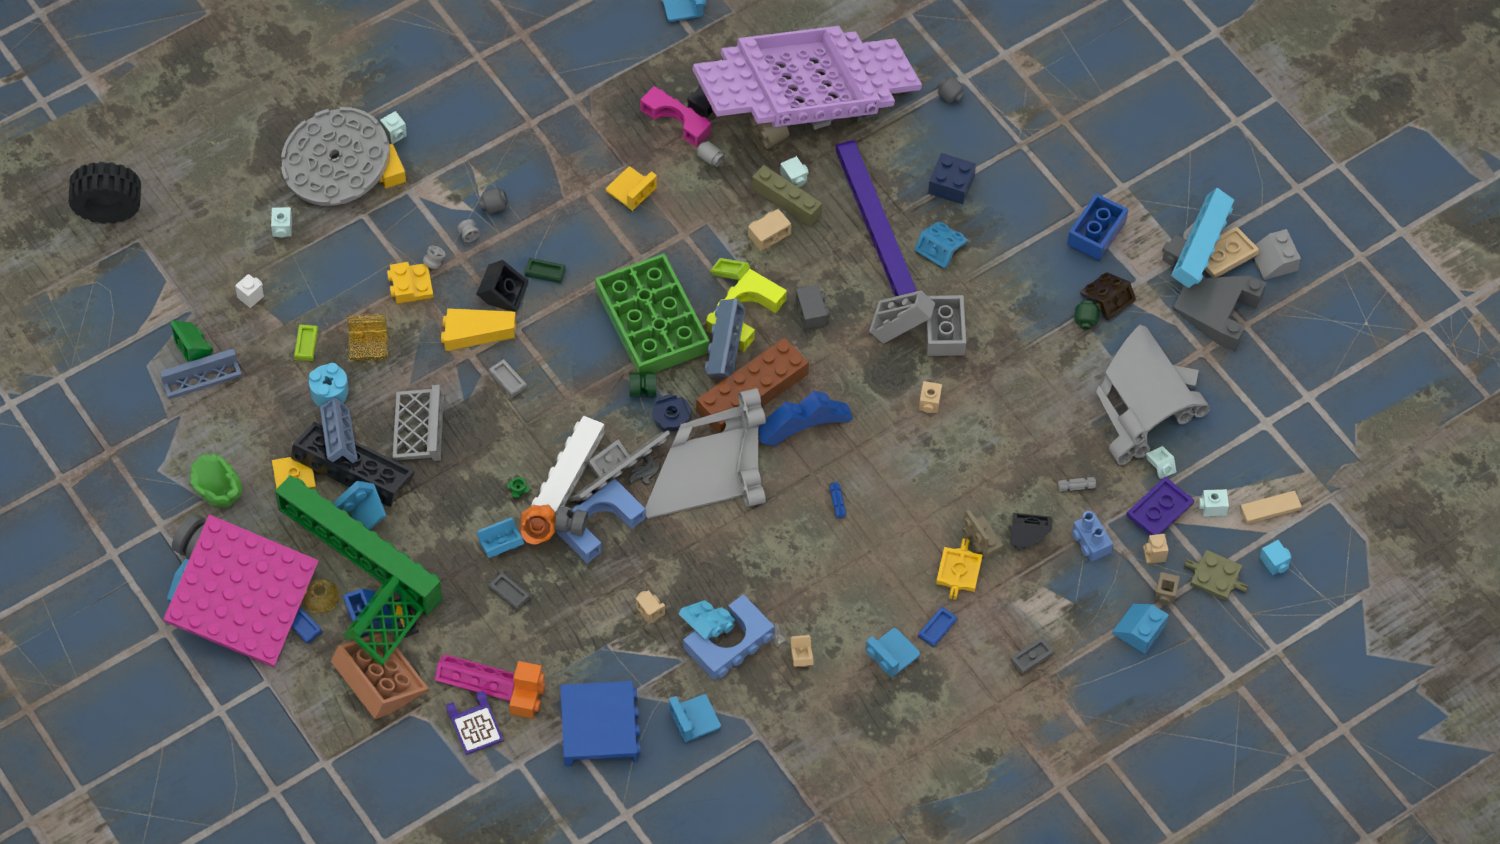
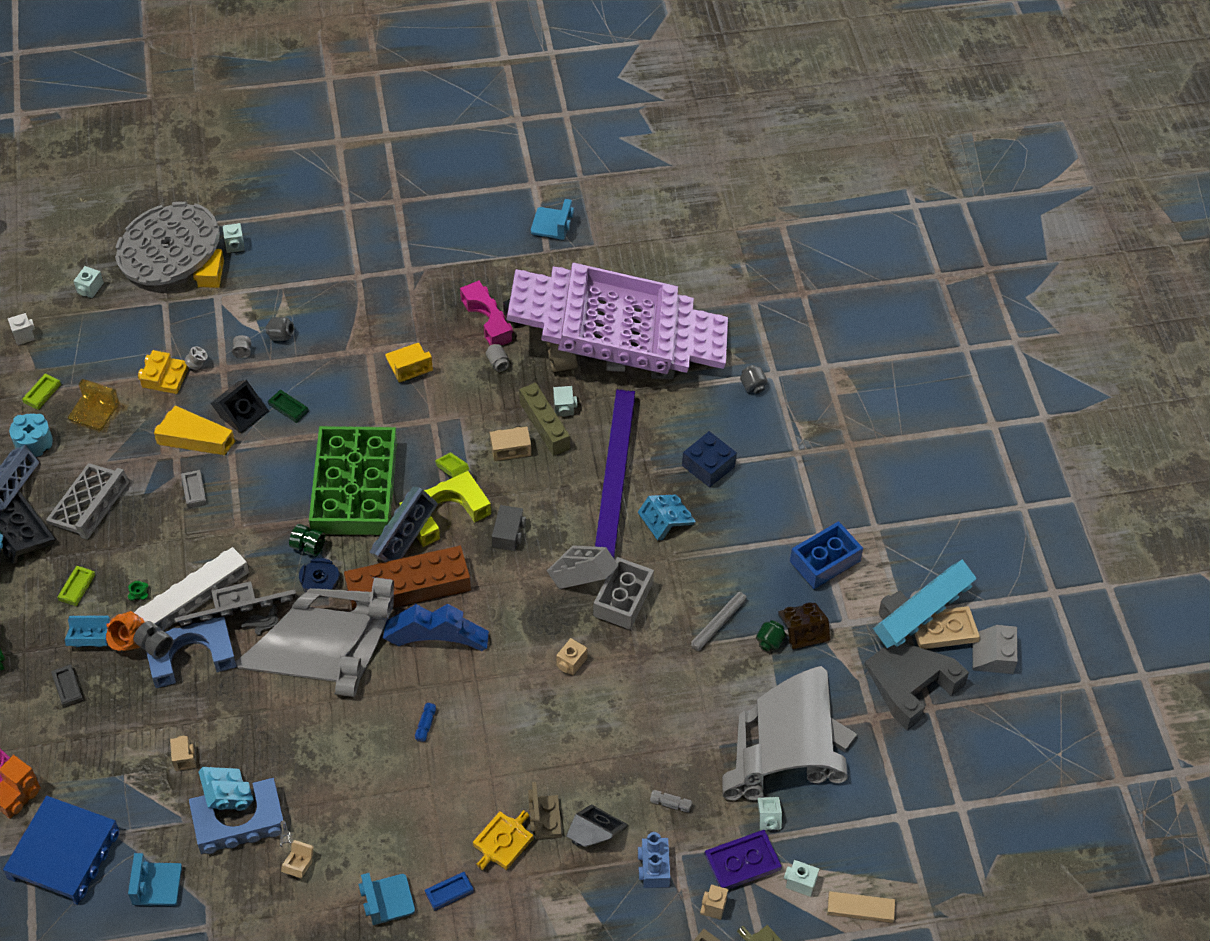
camera: 25 degrees right, 5 degrees down
(459, 504) = (76, 585): none -> lime tile
(1035, 319) = (718, 621): none -> light grey axle

